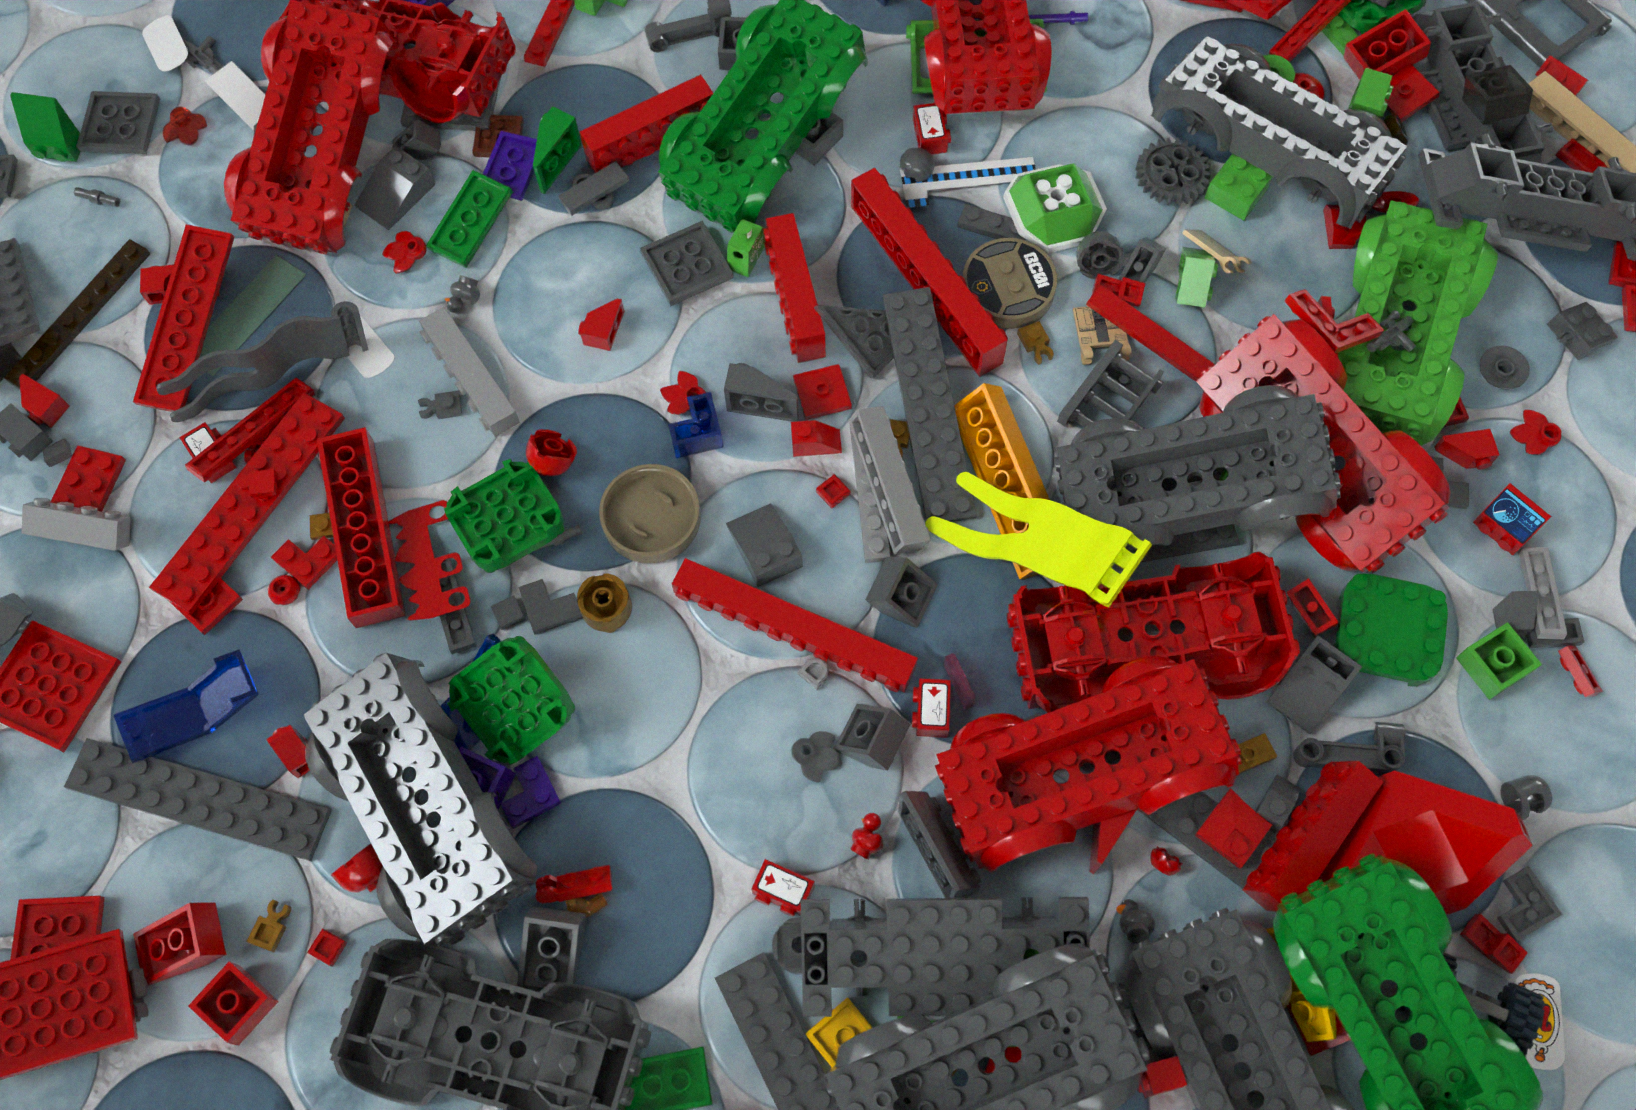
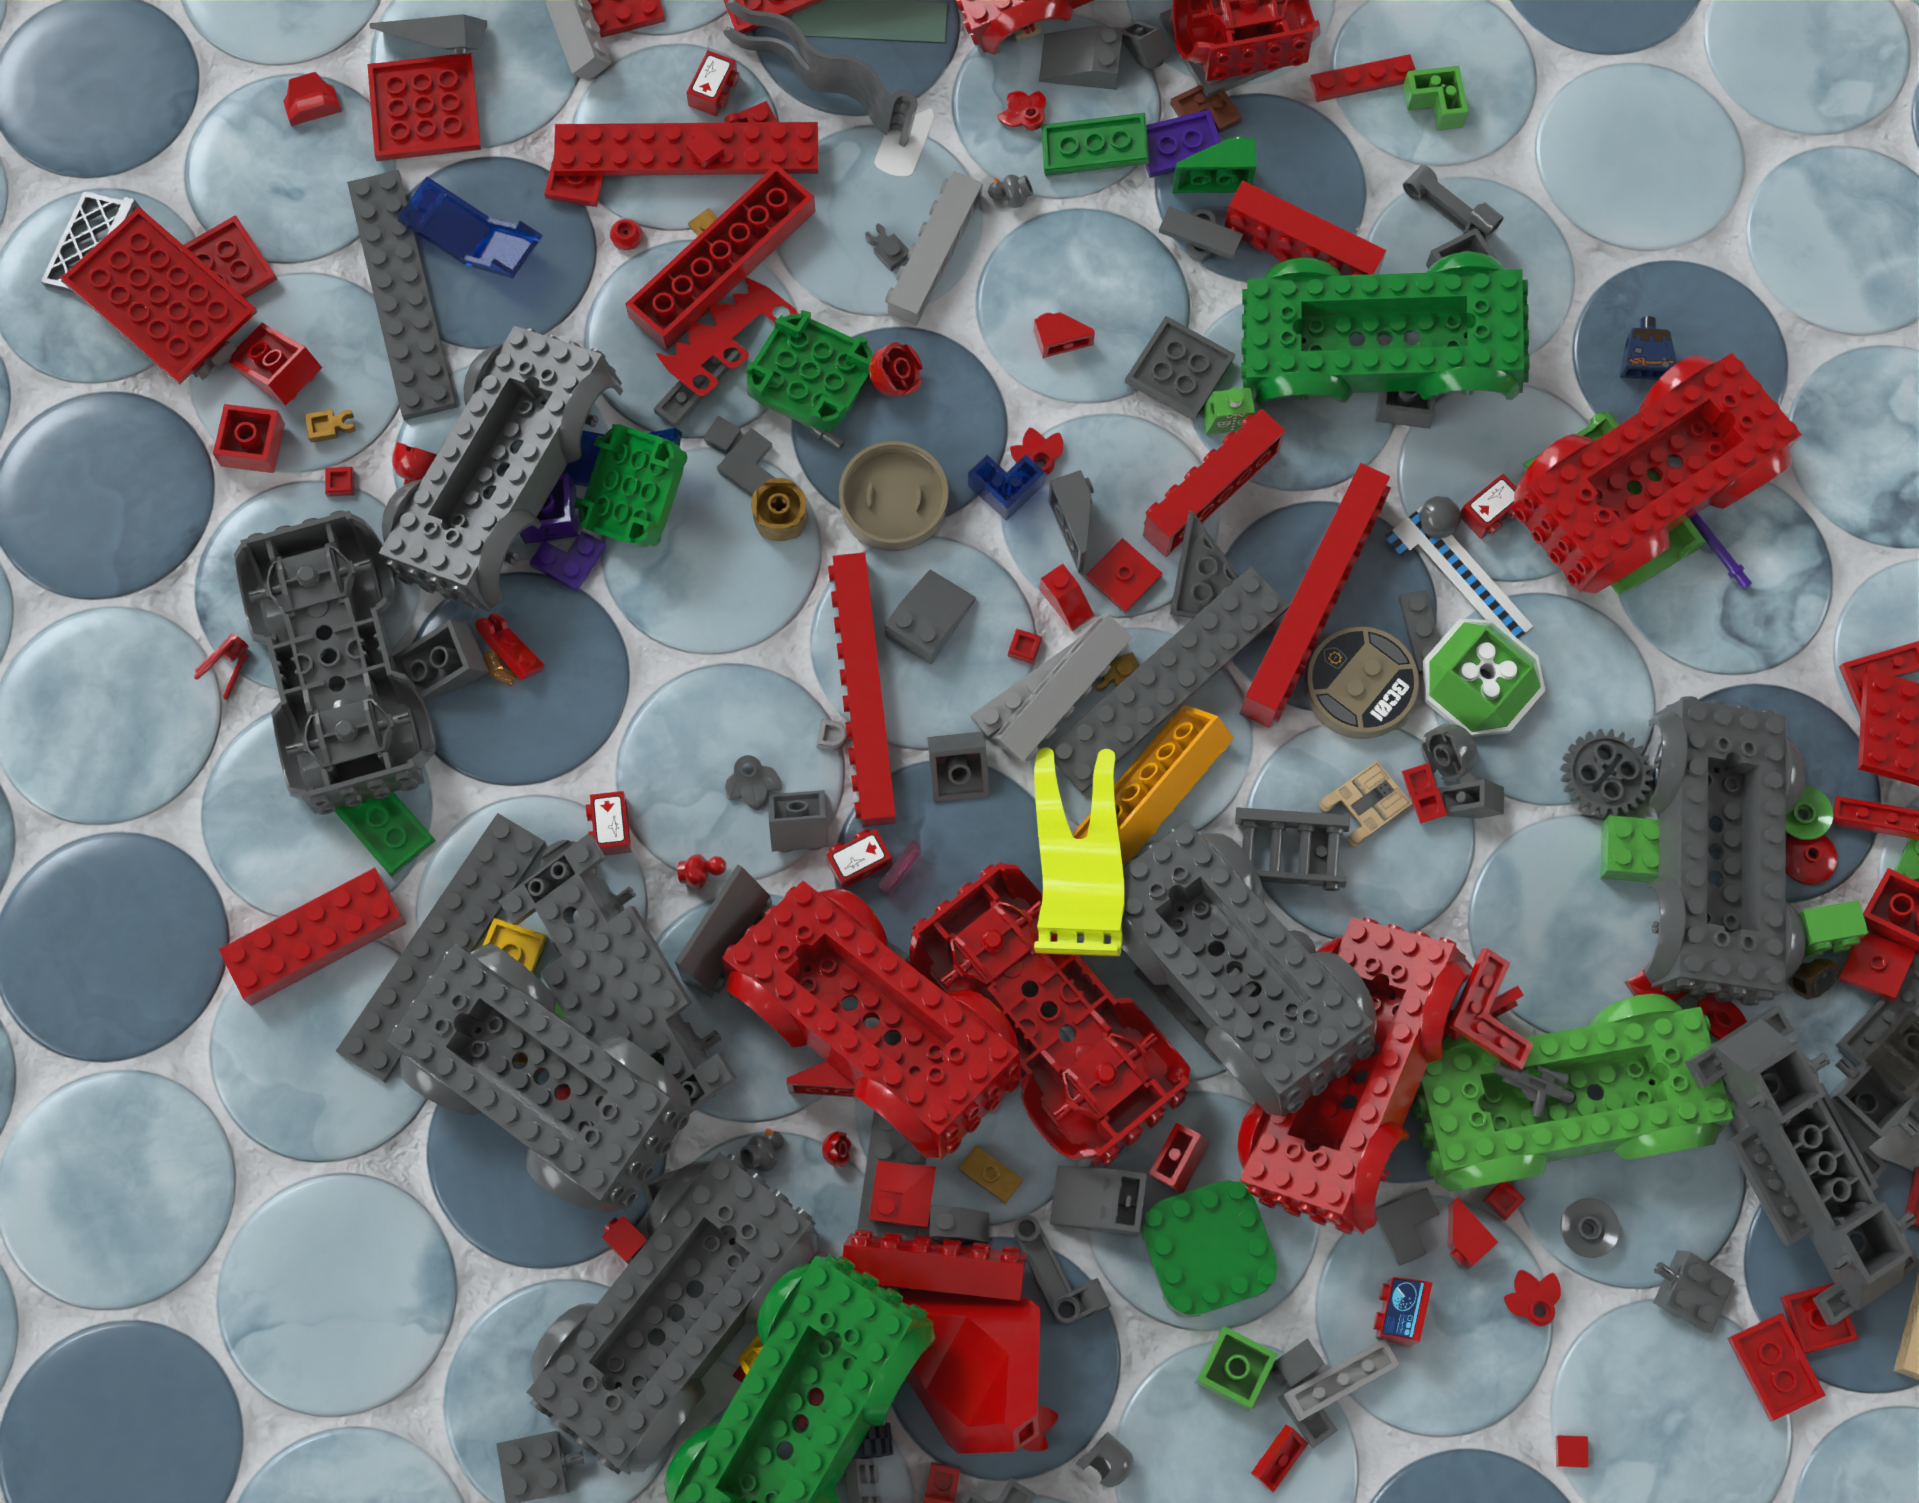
camera: 55 degrees right, 5 degrees up
(247, 431) = (752, 102): red tile -> none
(290, 748) = (482, 334): red slope -> none
(309, 566) = (659, 237): red plate -> none
(1035, 339) = (1314, 743): pearl gold plate -> none
(1148, 333) = (1392, 846): red tile -> none
(1195, 276) = (1486, 857): brick -> none
(1216, 250) = (1533, 863): tan flag -> none

